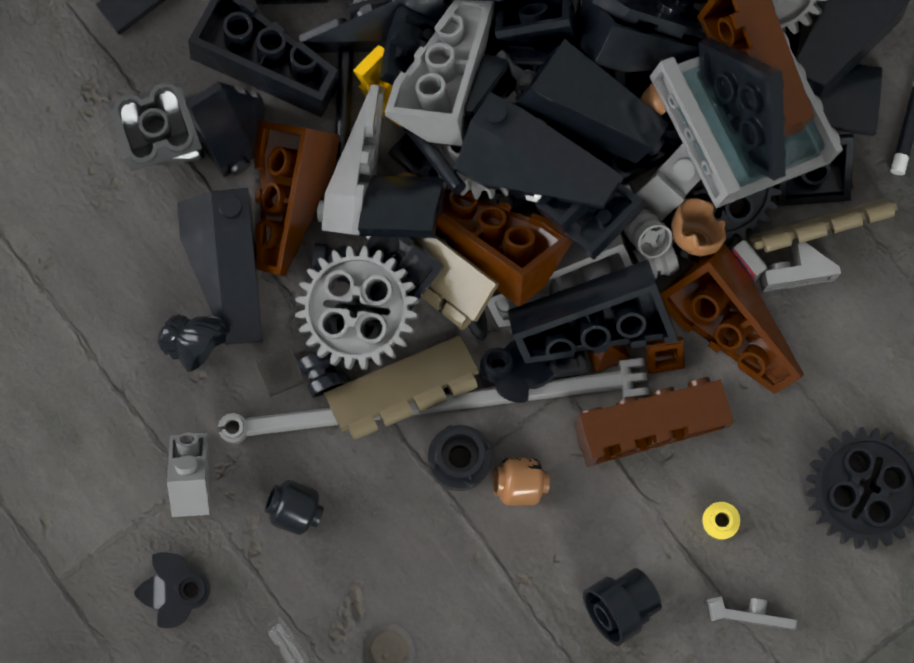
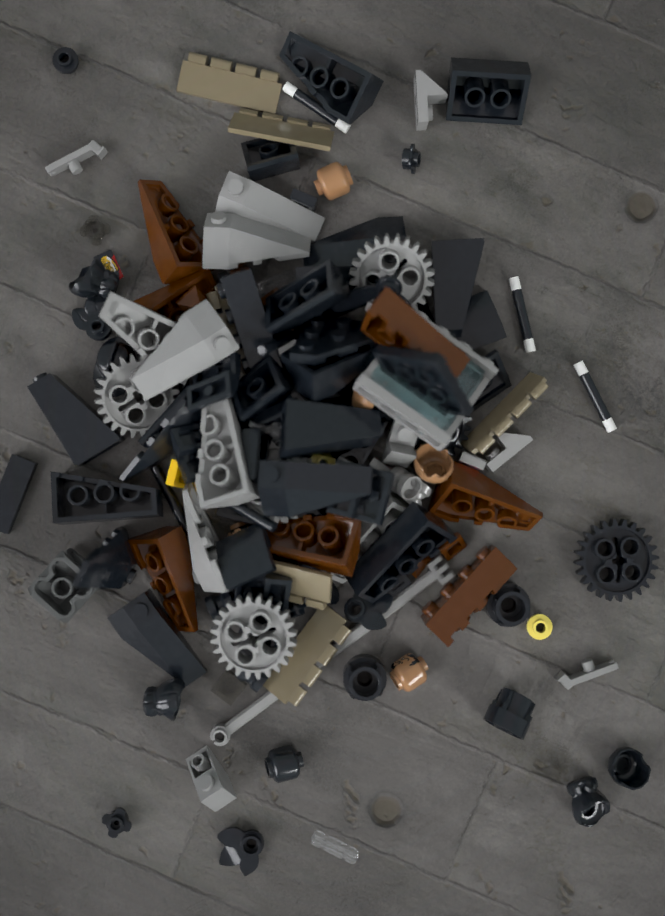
camera: 25 degrees left, 10 degrees up
(43, 471) = (117, 815): none -> black plate
(427, 321) = (296, 609): none -> black plate
(706, 451) = (519, 610): none -> black piece

